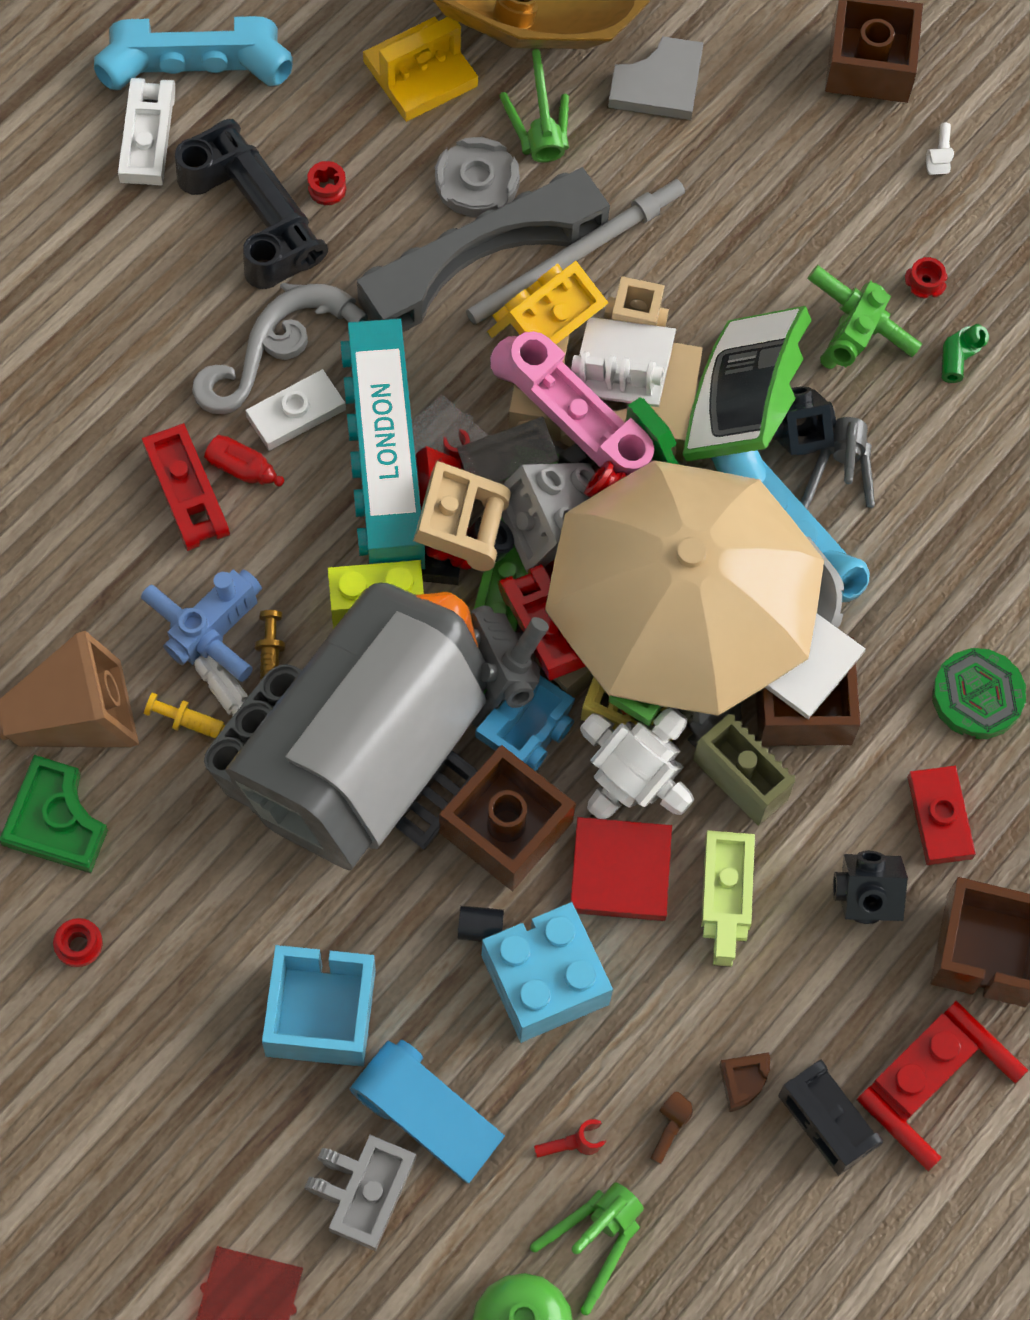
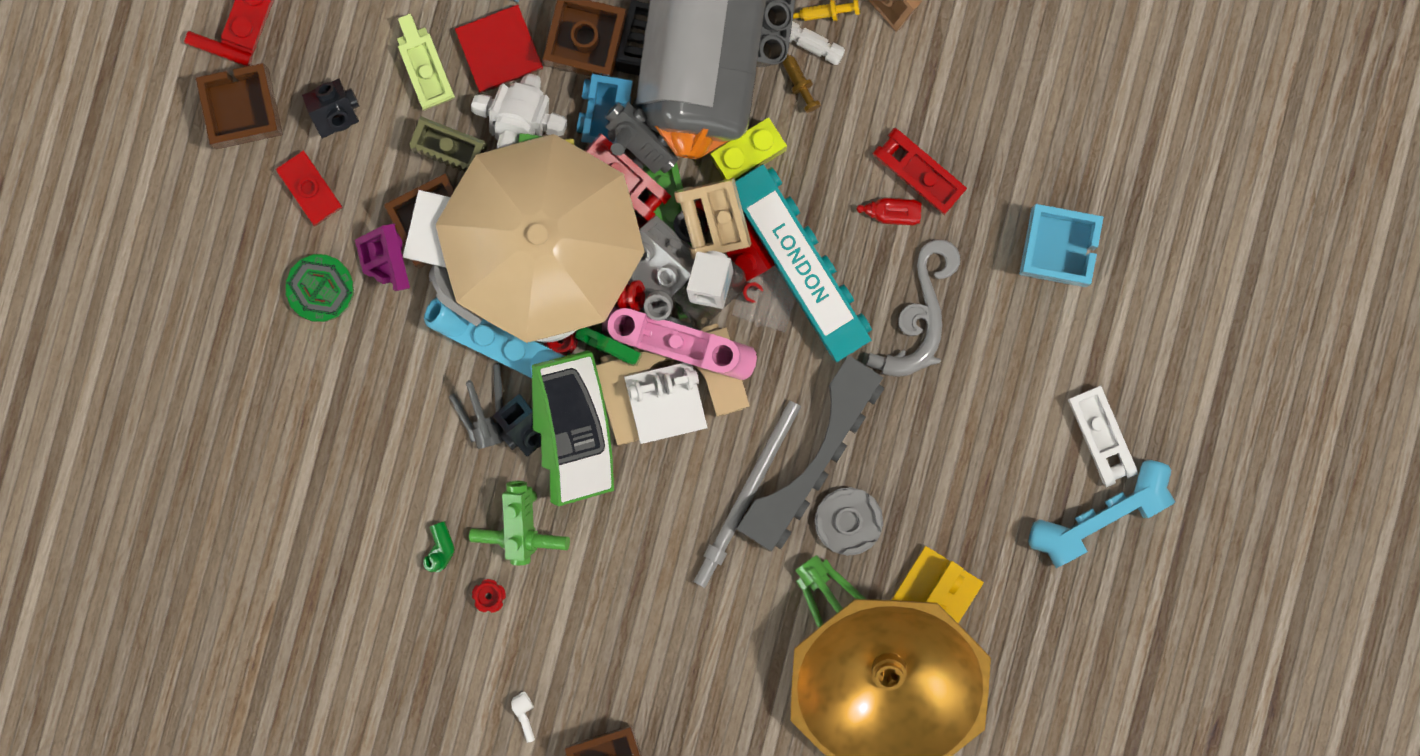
camera: 160 degrees right, 20 degrees up
(83, 325) = (1058, 245): none -> medium azure piece
(202, 628) = (852, 69): medium blue piece -> none
(287, 239) = (989, 423): black piece -> none
(295, 410) = (878, 269): white plate -> none
(322, 172) = (945, 451): red bush -> none
(502, 445) = (710, 279): none -> white brick
(552, 304) = (739, 418): yellow bracket -> none
(578, 452) = (661, 310): none -> light grey hinge
(637, 303) = (681, 467): tan brick -> none
(660, 83) = (753, 671): light grey tile -> none
(885, 673) = (382, 256): none -> magenta wing

